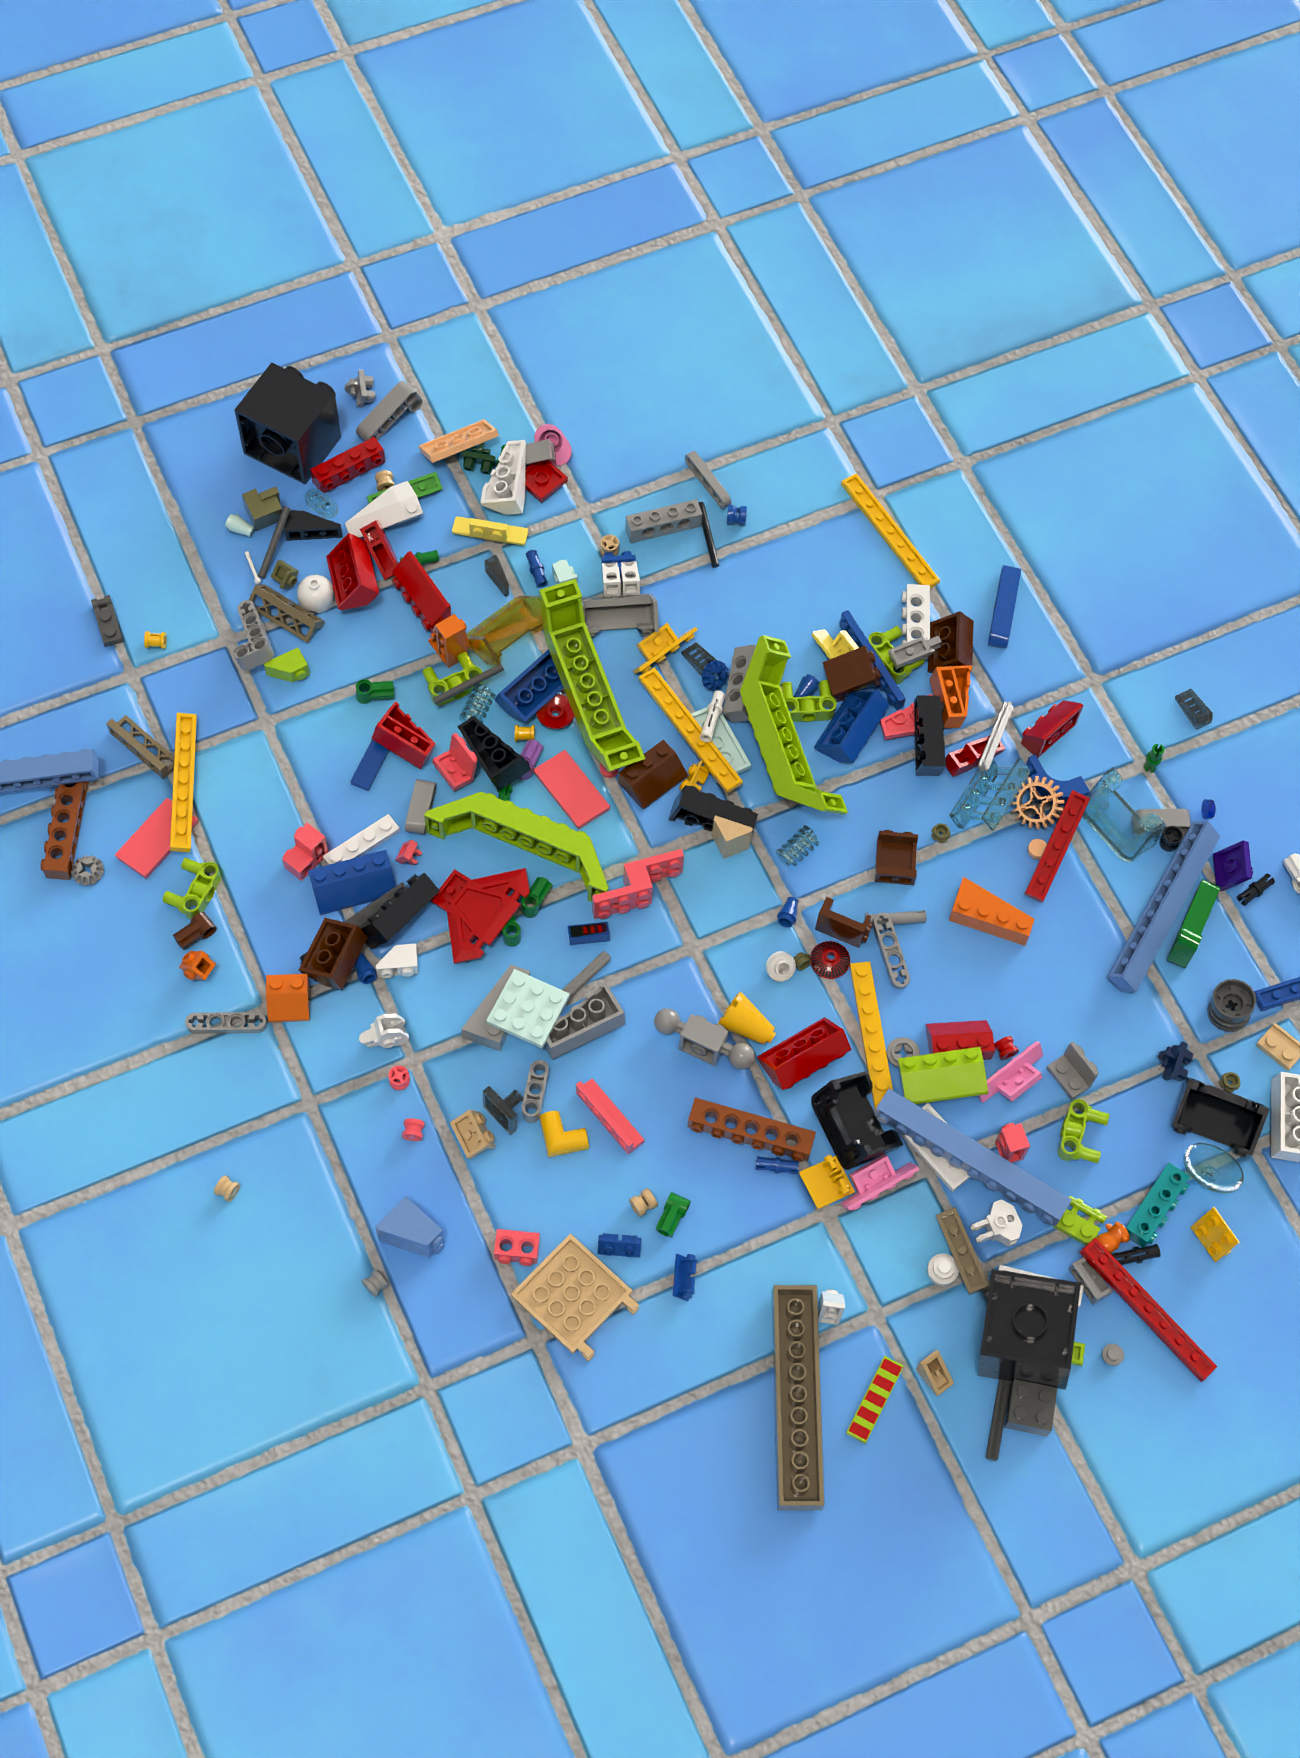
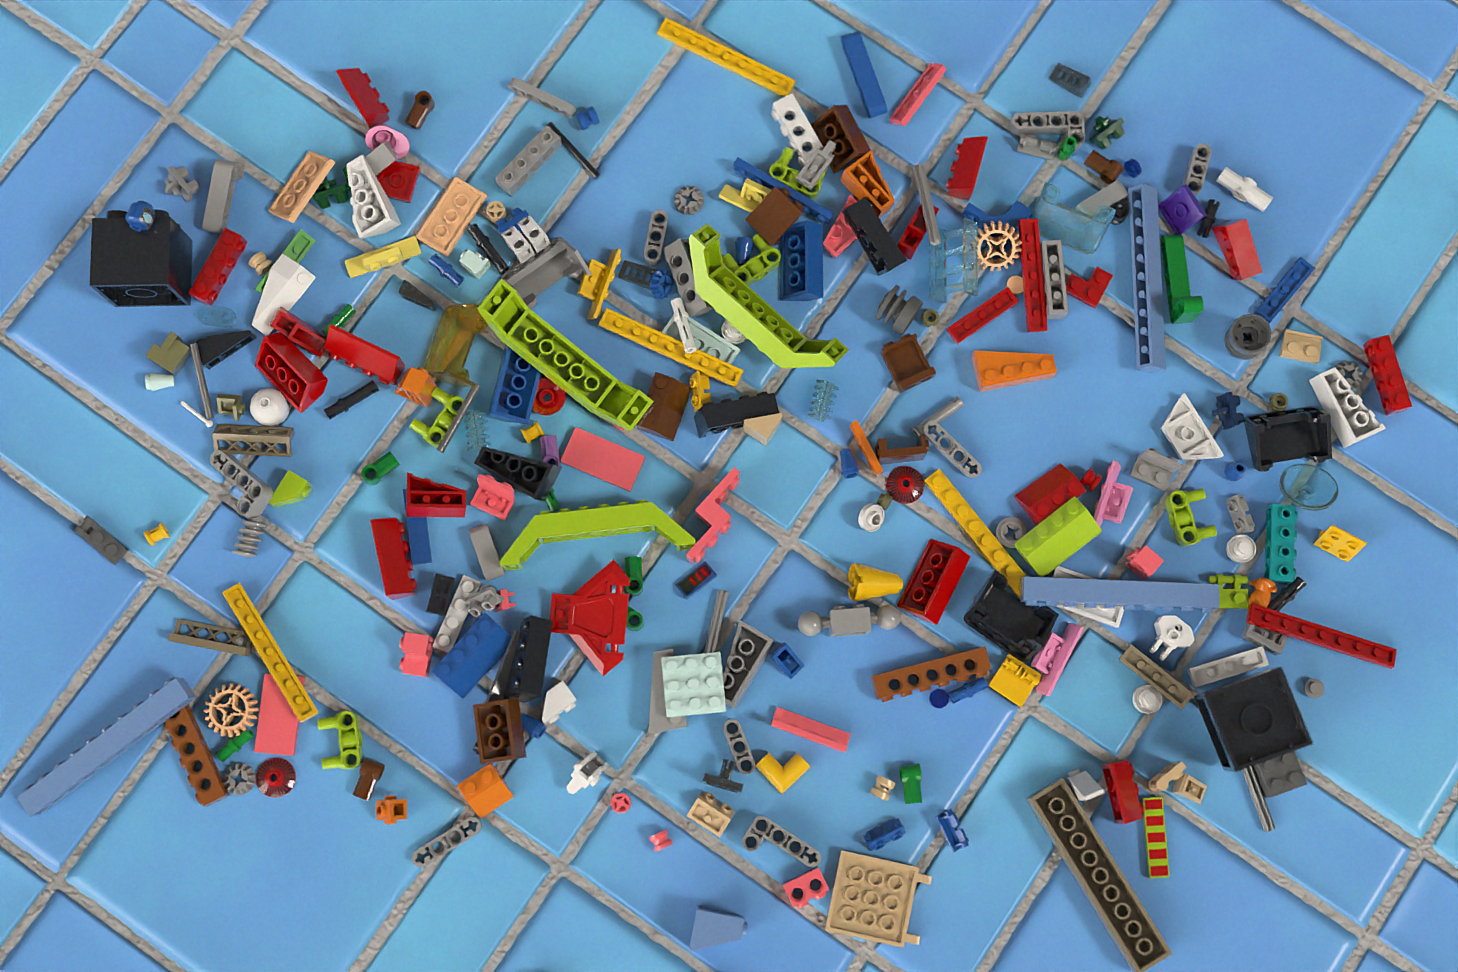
camera: 30 degrees left, 15 degrees up
(102, 839) = (234, 744): none -> green pin
(121, 894) = (285, 777): none -> dish
(123, 800) = (234, 703): none -> light nougat gear
(228, 683) = (249, 538): none -> light grey piece
(311, 378) = (140, 215): none -> blue head
(337, 765) = (393, 558): none -> red slope
(357, 817) = (440, 595): none -> black hinge
(387, 625) = (347, 402): none -> black pin
(391, 840) = (483, 600): none -> light grey hips
(521, 1197) = (784, 844): none -> light grey beam
(557, 399) = (364, 96): none -> red slope
(569, 531) = (451, 216): none -> light nougat tile
(583, 564) = (484, 243): none -> black pin
(597, 435) = (419, 112): none -> reddish brown piece
(626, 1042) = (787, 660): none -> blue slope
(737, 630) = (656, 229): none -> light grey beam
(745, 1157) = (938, 698): none -> clear blue tile
(752, 749) = (732, 334): none -> white plate
(782, 631) = (692, 207): none -> light grey gear
(812, 907) = (866, 448): none -> orange tile
(868, 1336) = (1122, 792): none -> red slope
(915, 807) = (898, 309): none -> dark grey wheel
(918, 1343) = (1171, 772): none -> tan plate
(990, 856) = (982, 315): none -> red plate
(1043, 646) = (917, 94): none -> coral plate
(1074, 859) = (1054, 279): none -> light grey brick
(1105, 891) = (1089, 291): none -> red plate
(1115, 1188) = (1241, 548): none -> white plate
(1125, 1061) = (1188, 433): none -> white wing
(1128, 745) = (1037, 147): none -> light grey hinge
(1134, 1150) = (1237, 507): none -> light grey hinge
(1146, 733) = (1065, 127): none -> light grey beam
(1150, 1117) = (1234, 471): none -> blue cone
(1182, 796) = (1107, 169): none -> reddish brown piece
(1211, 767) = (1101, 137): none -> dark green hips
(1268, 927) = (1238, 248): none -> wedge
(1272, 836) = (1200, 164): none -> light grey beam

